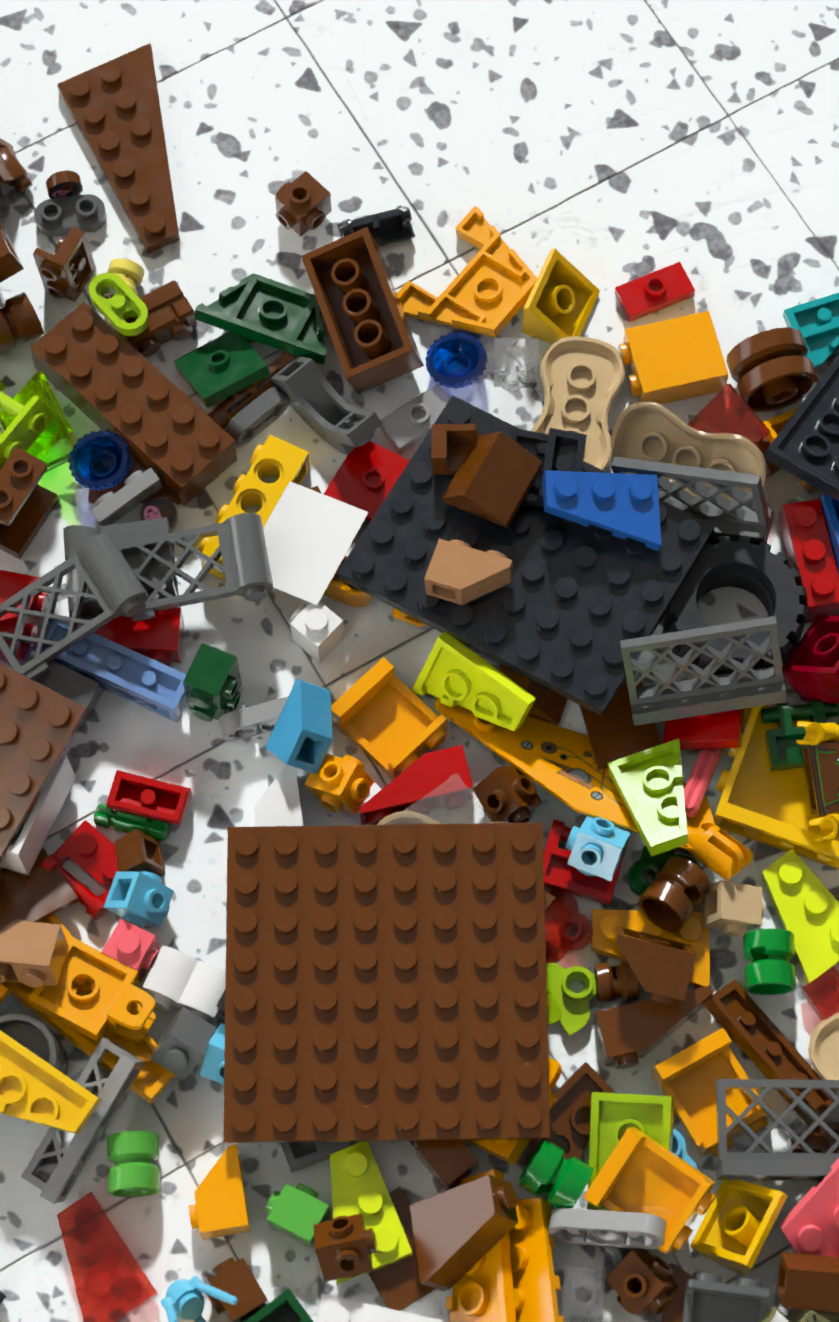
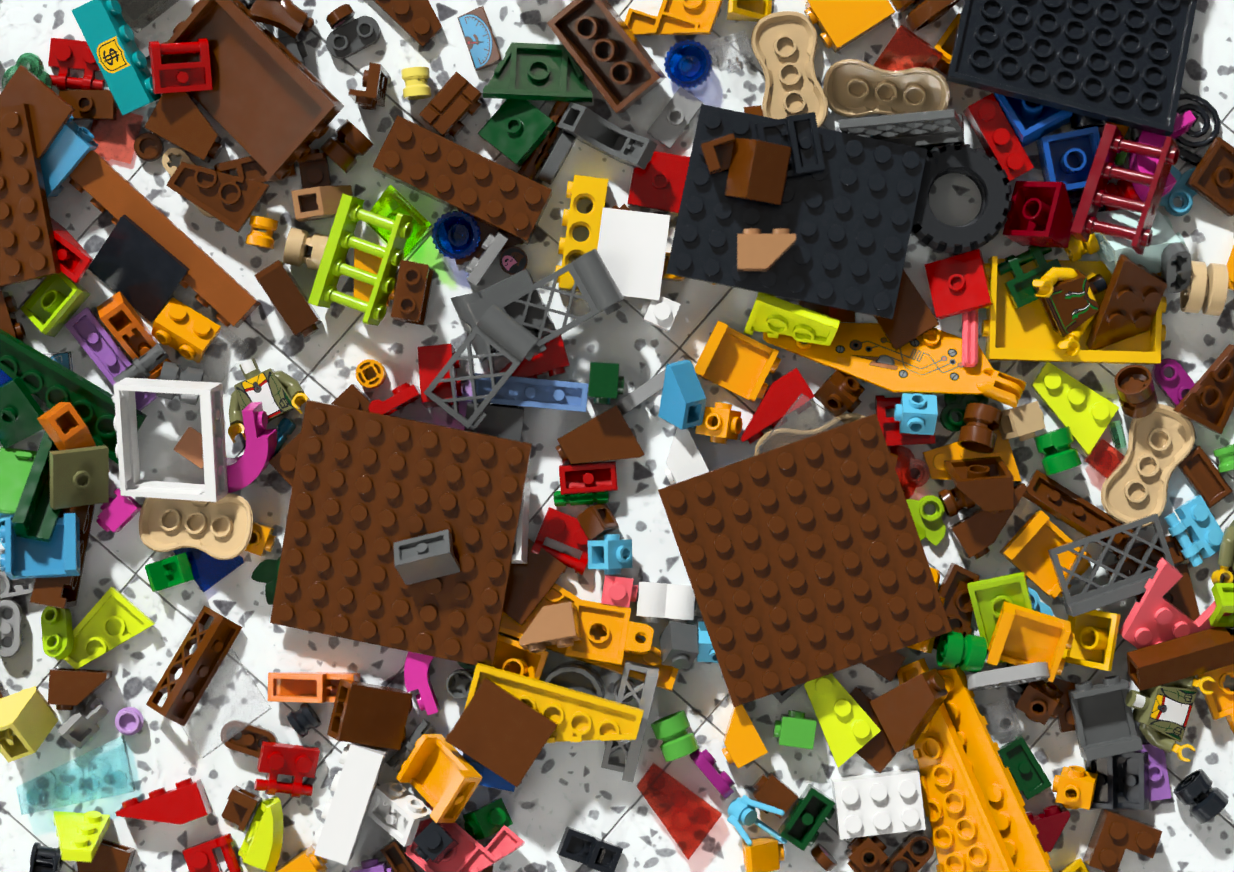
camera: 20 degrees left, 20 degrees up
(119, 307) = (426, 110): lime plate -> none
(172, 1248) = (705, 763): none -> magenta plate
(182, 755) = (600, 439): none -> reddish brown slope
(217, 259) = (479, 38): none -> slope
(344, 1247) = (838, 747): reddish brown brick -> none
(607, 500) = (848, 161): blue wing -> none
(654, 795) = (945, 363): wing -> none
(706, 692) = (967, 268): dark grey fence -> none

